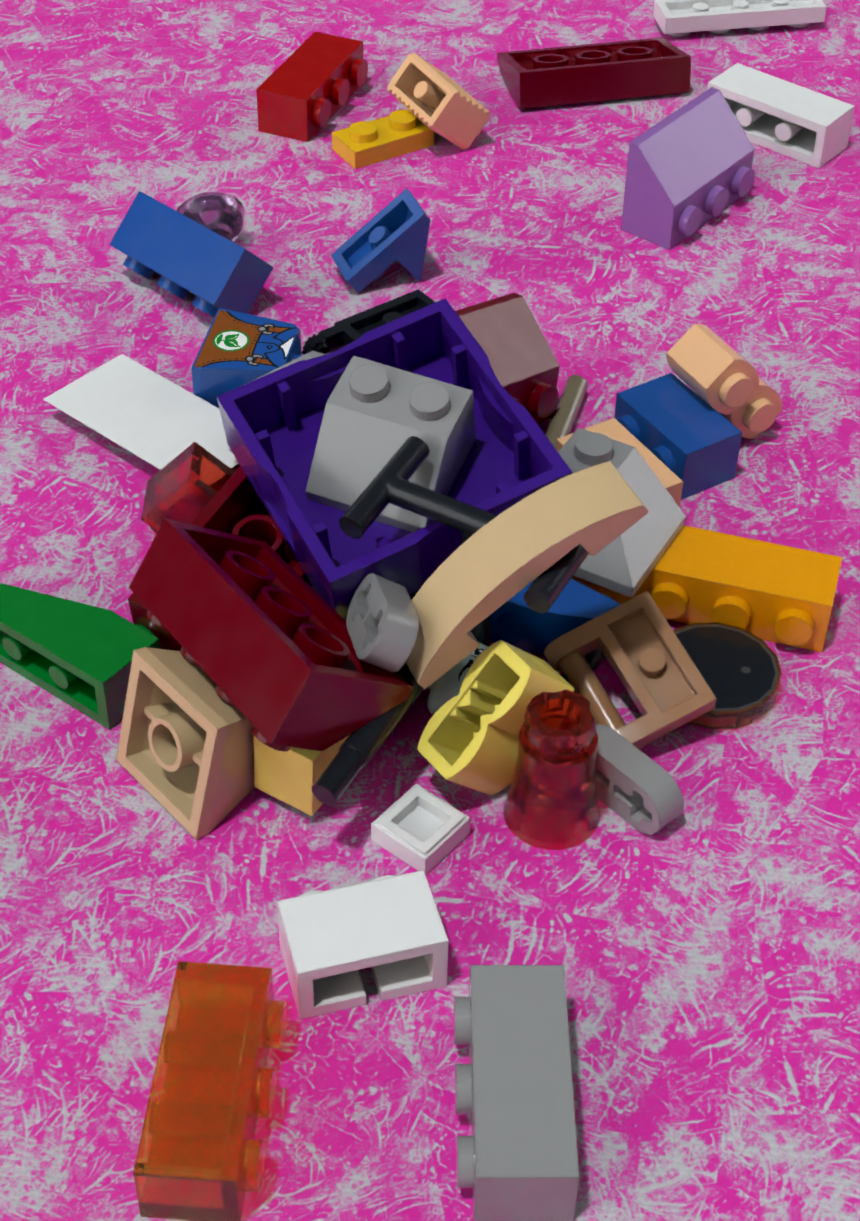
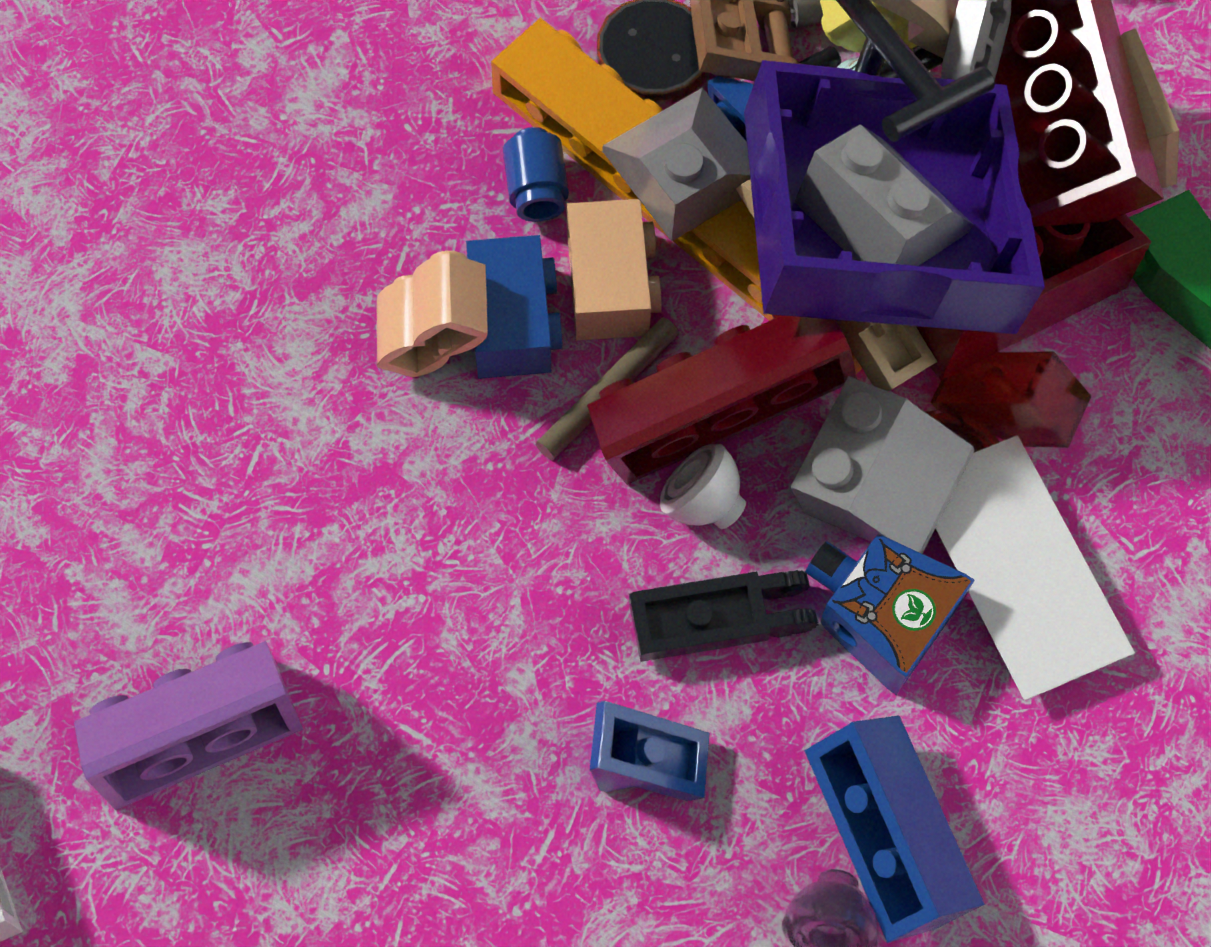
camera: 155 degrees left, 25 degrees up
(731, 513) = (536, 174): none -> blue brick

